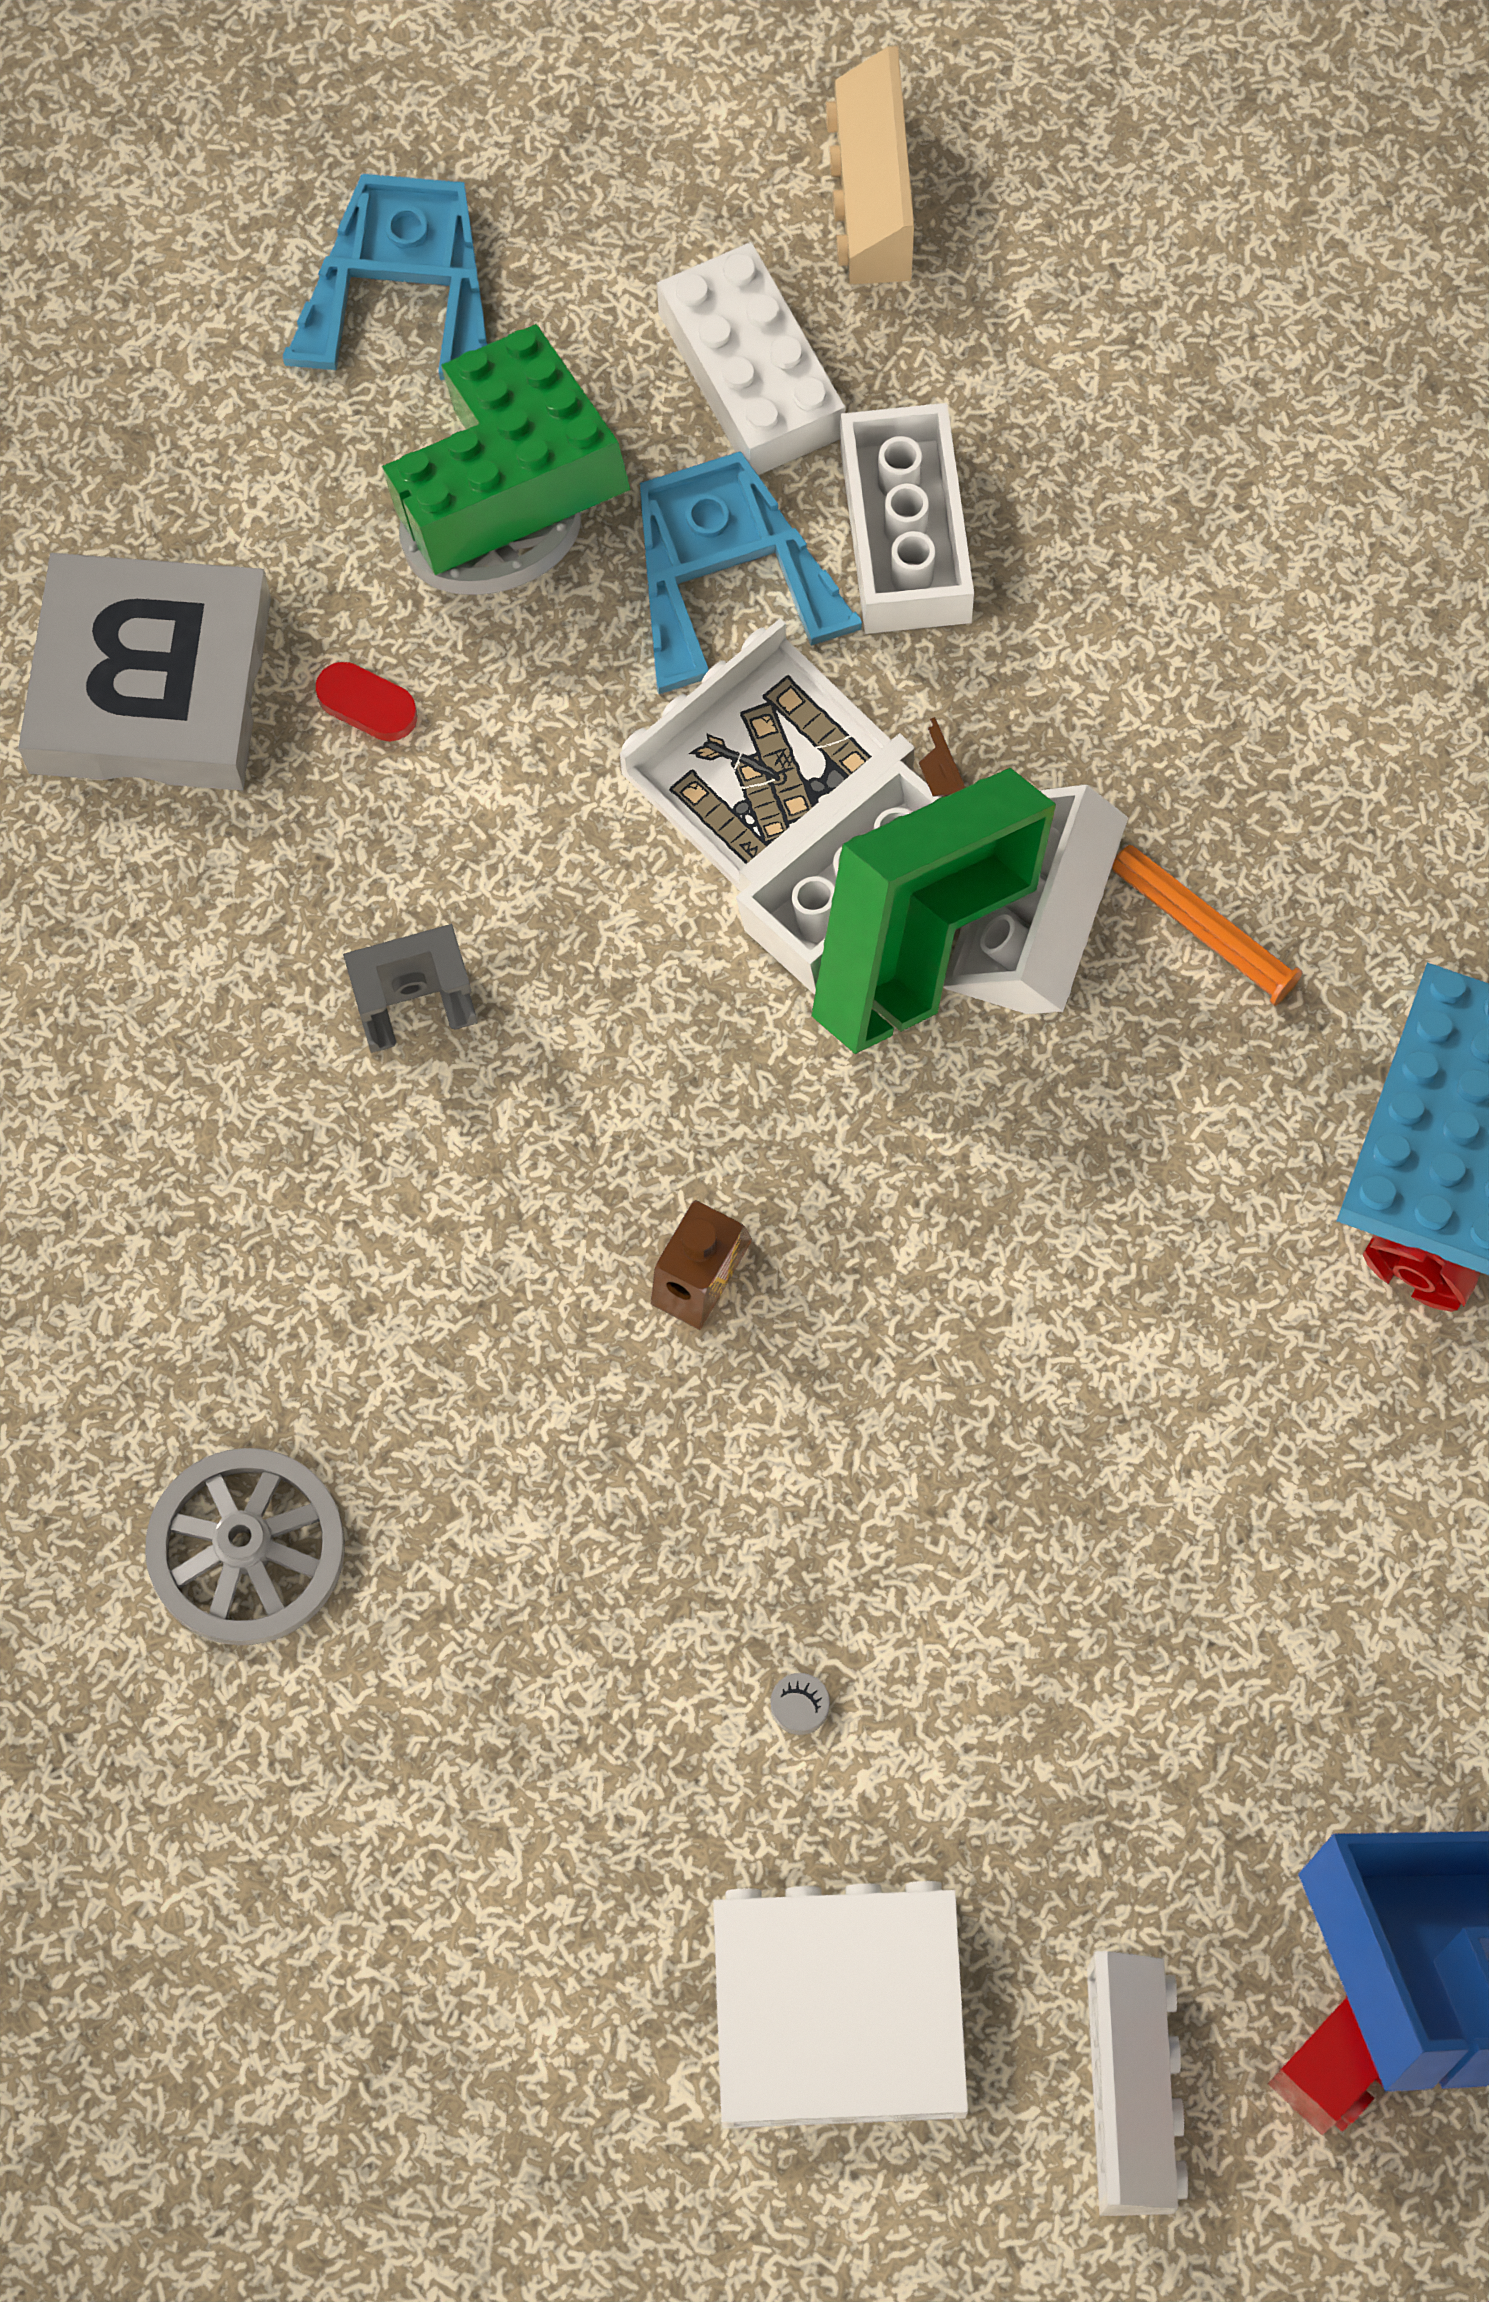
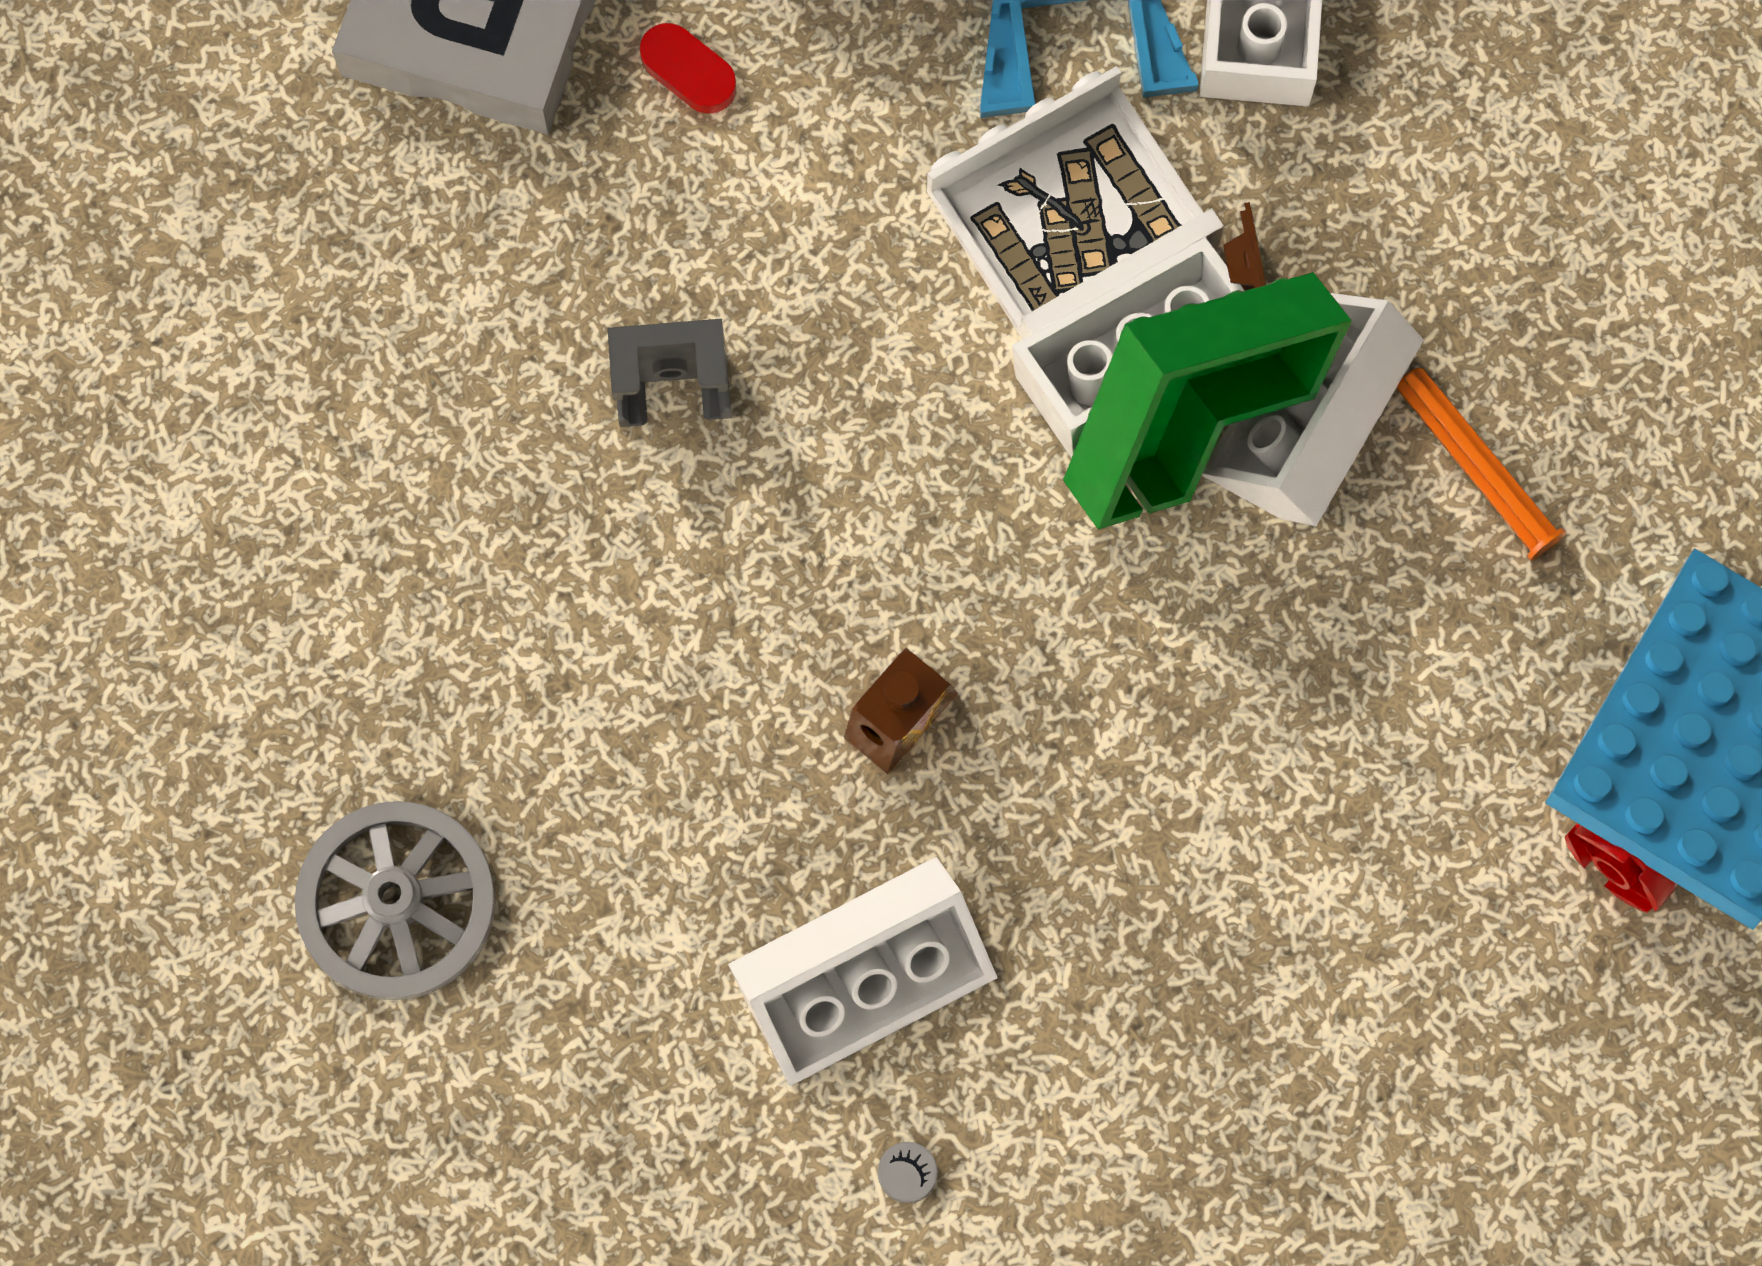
camera: 10 degrees right, 5 degrees up
(717, 1519) = (863, 970): none -> white slope

